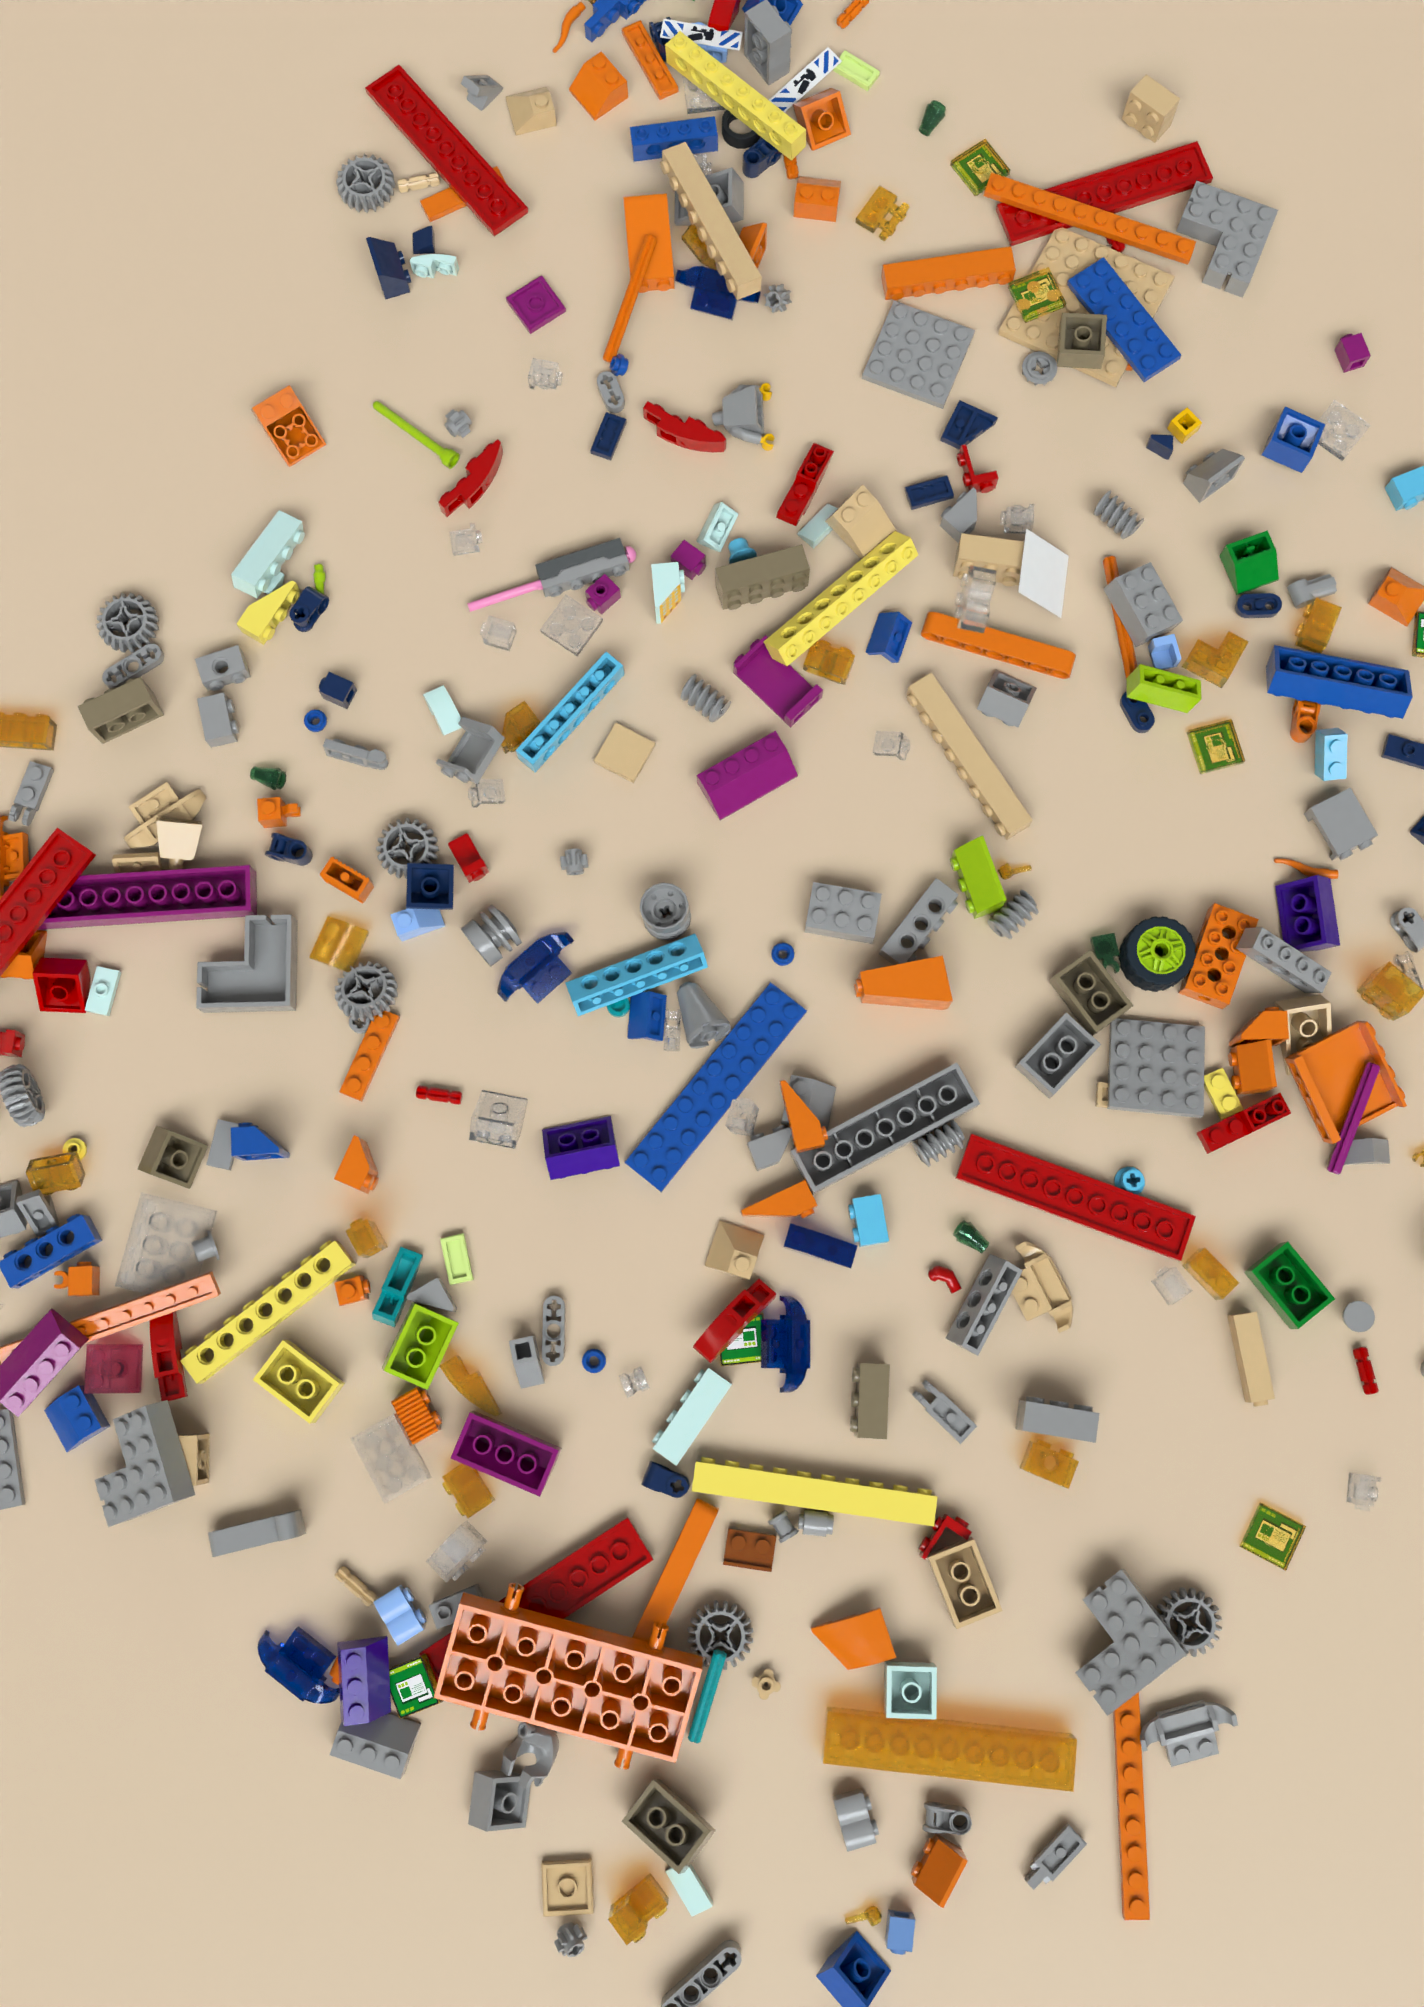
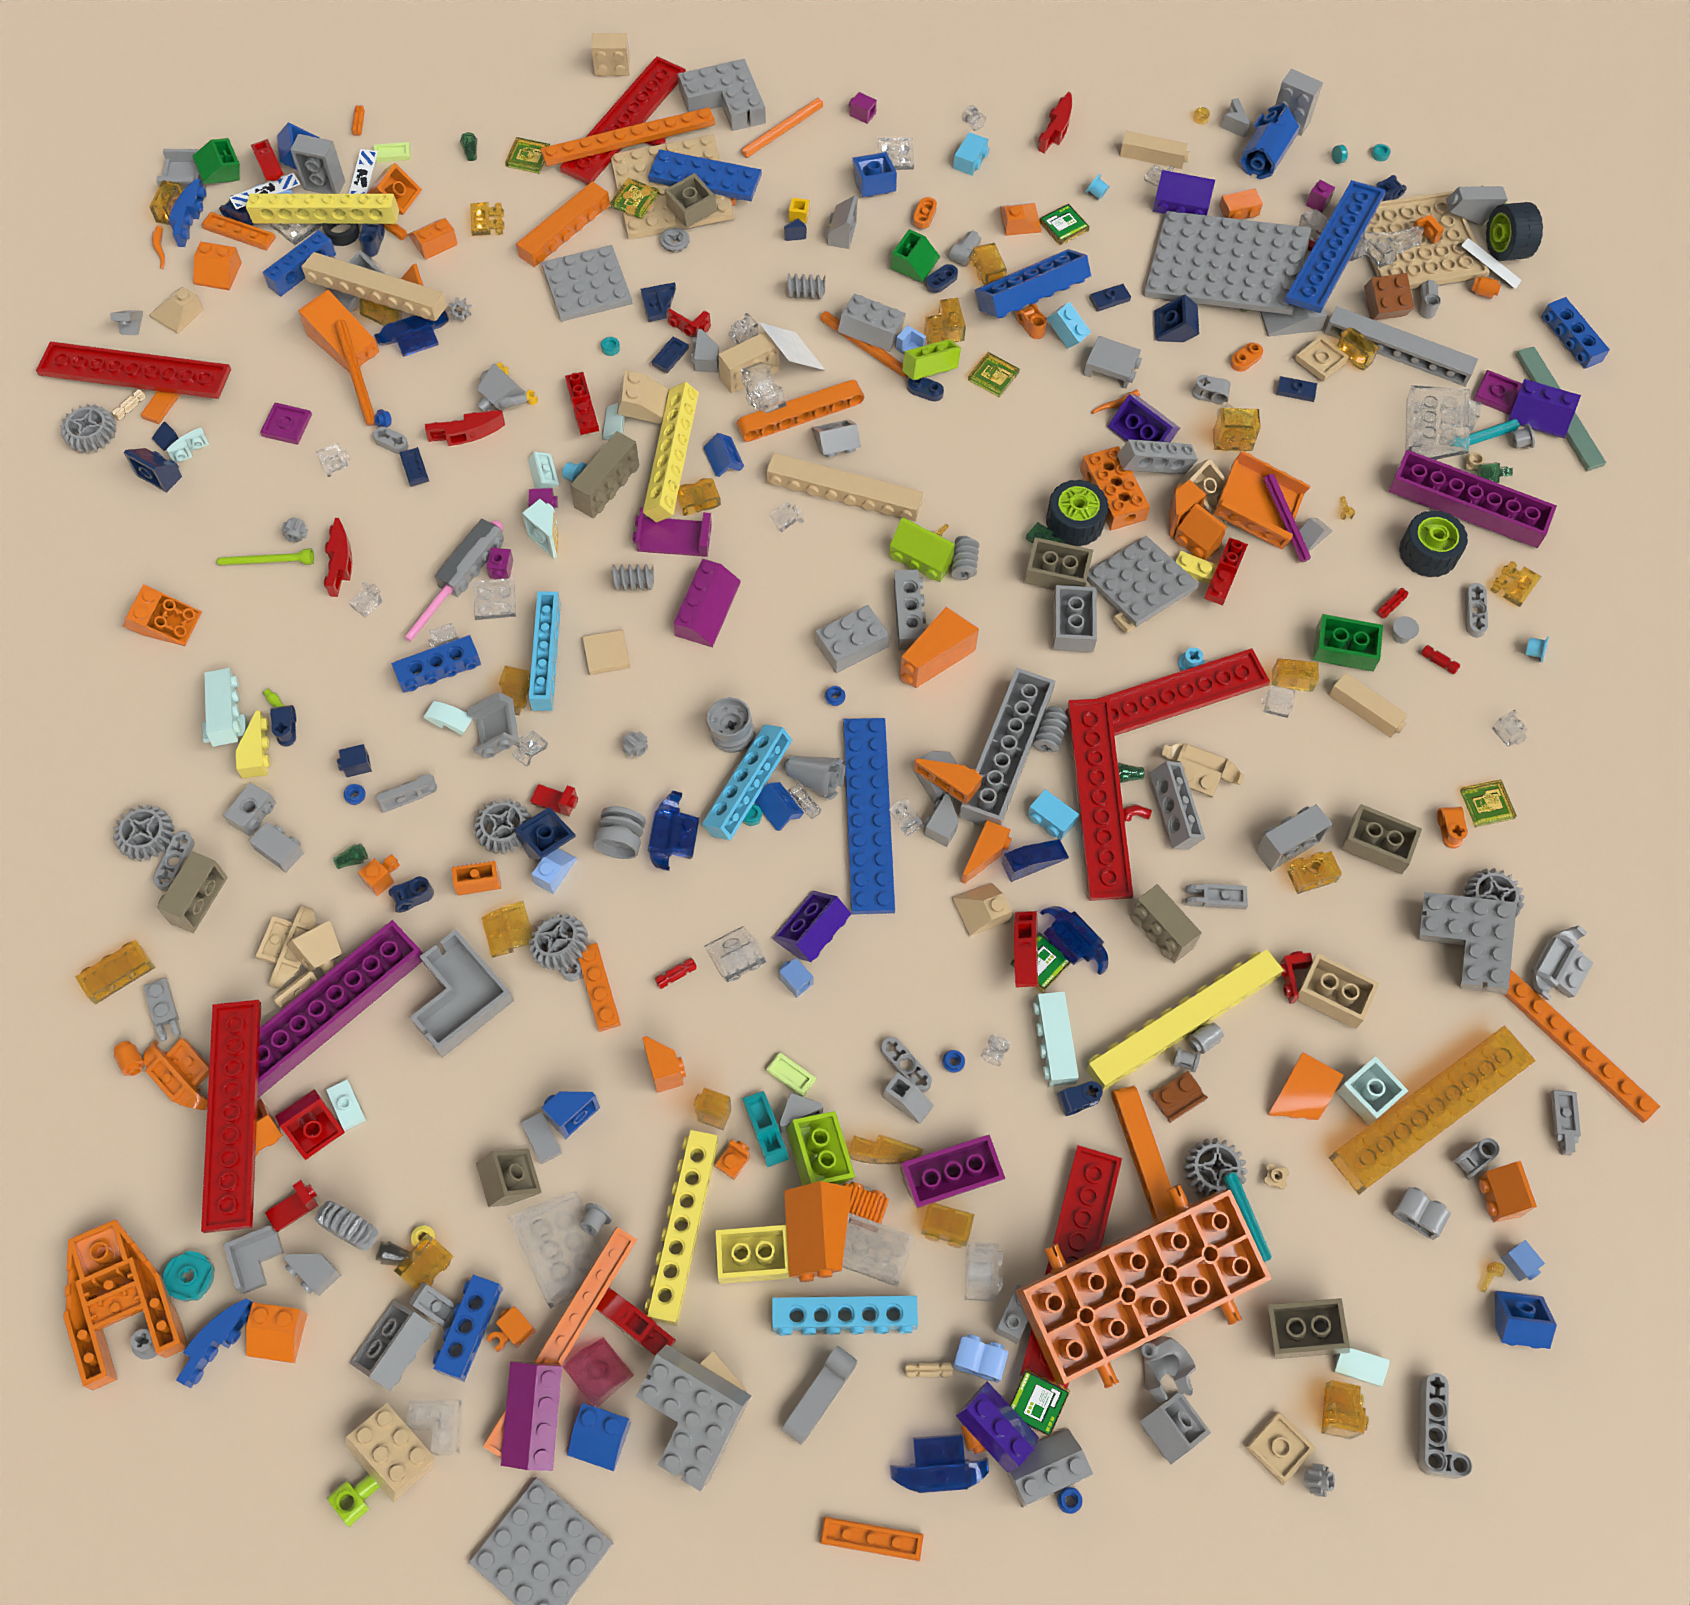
camera: 45 degrees left, 15 degrees down
(41, 1143) = (391, 1254): none -> clear smoke cone
(205, 1670) = (872, 1539): none -> orange tile
(324, 1473) = (832, 1306): none -> medium azure brick
(357, 1408) = (816, 1229): none -> orange slope
(367, 1783) = (1075, 1494): none -> blue plate
(442, 636) = (425, 662): none -> blue brick
(528, 1180) = (795, 977): none -> medium blue brick
(883, 440) = (610, 346): none -> teal tile
(922, 1240) = (1100, 800): none -> red plate
(1136, 1488) = (1381, 839): none -> dark tan brick
(1219, 1525) = (1452, 826): none -> orange piece
(1253, 316) = (782, 127): none -> orange axle
(1305, 519) = (925, 212): none -> orange plate
(1375, 1280) = (1393, 602): none -> red axle

